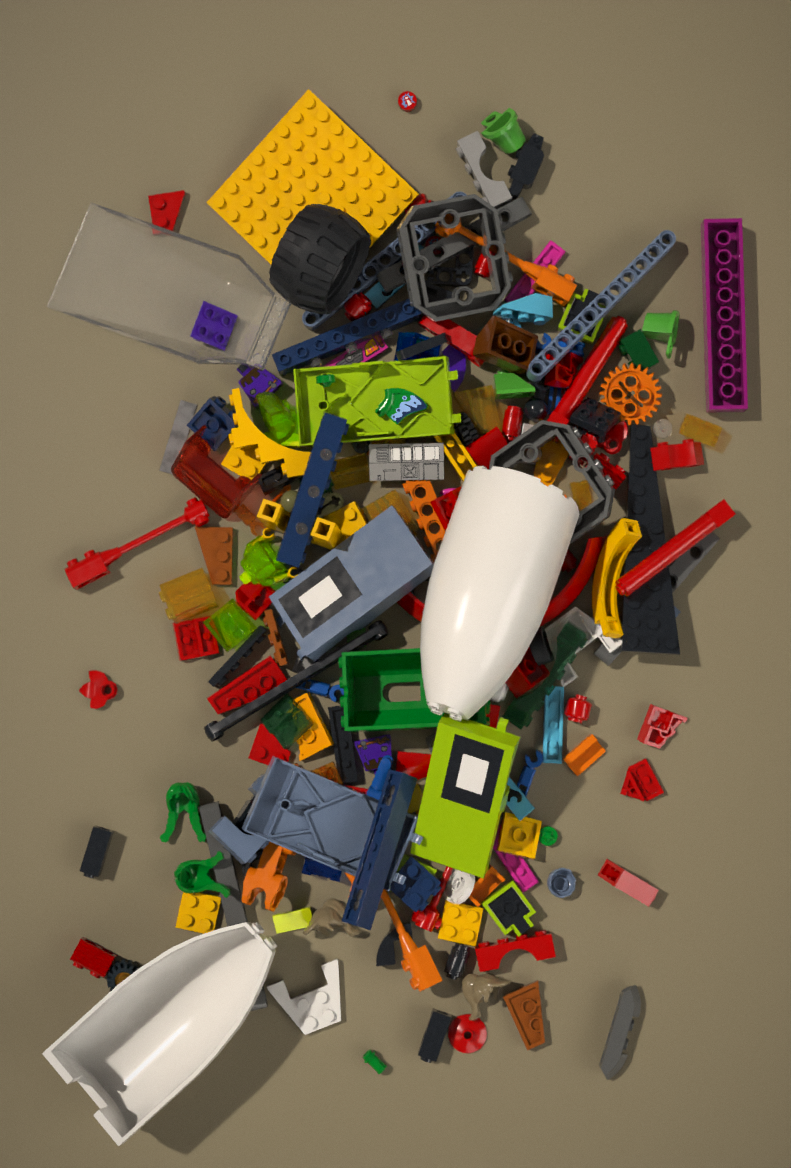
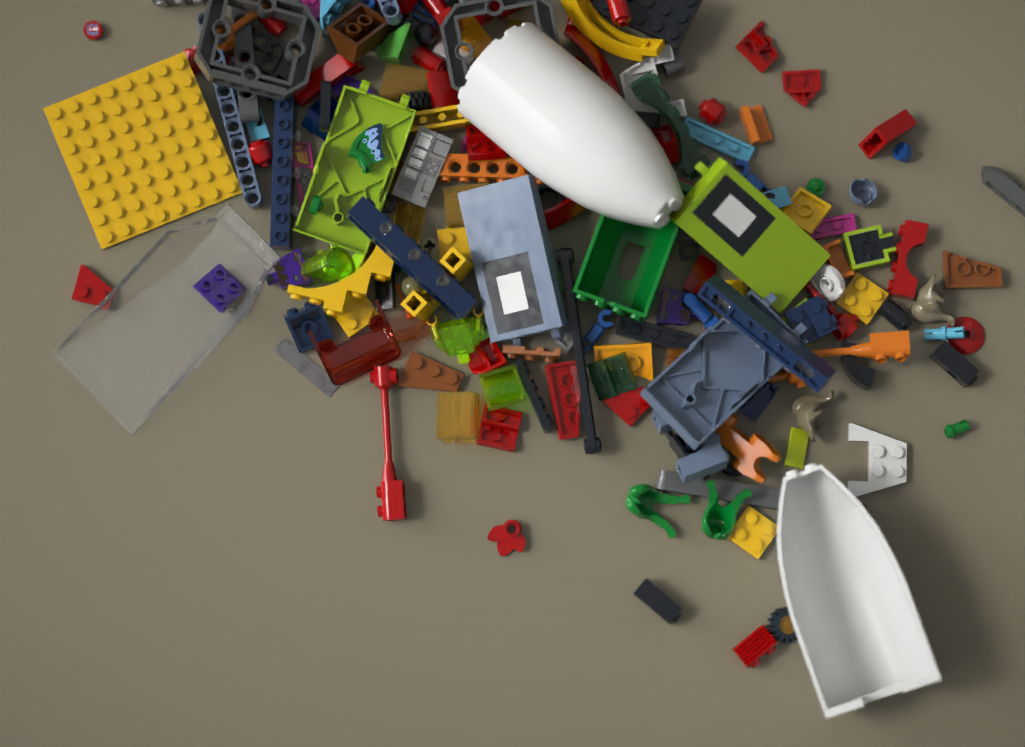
camera: 70 degrees left, 5 degrees down
(319, 258) = (205, 157): black tyre -> none
(459, 1014) = (944, 333): none -> medium azure pin
(616, 903) = (902, 152): none -> blue tile

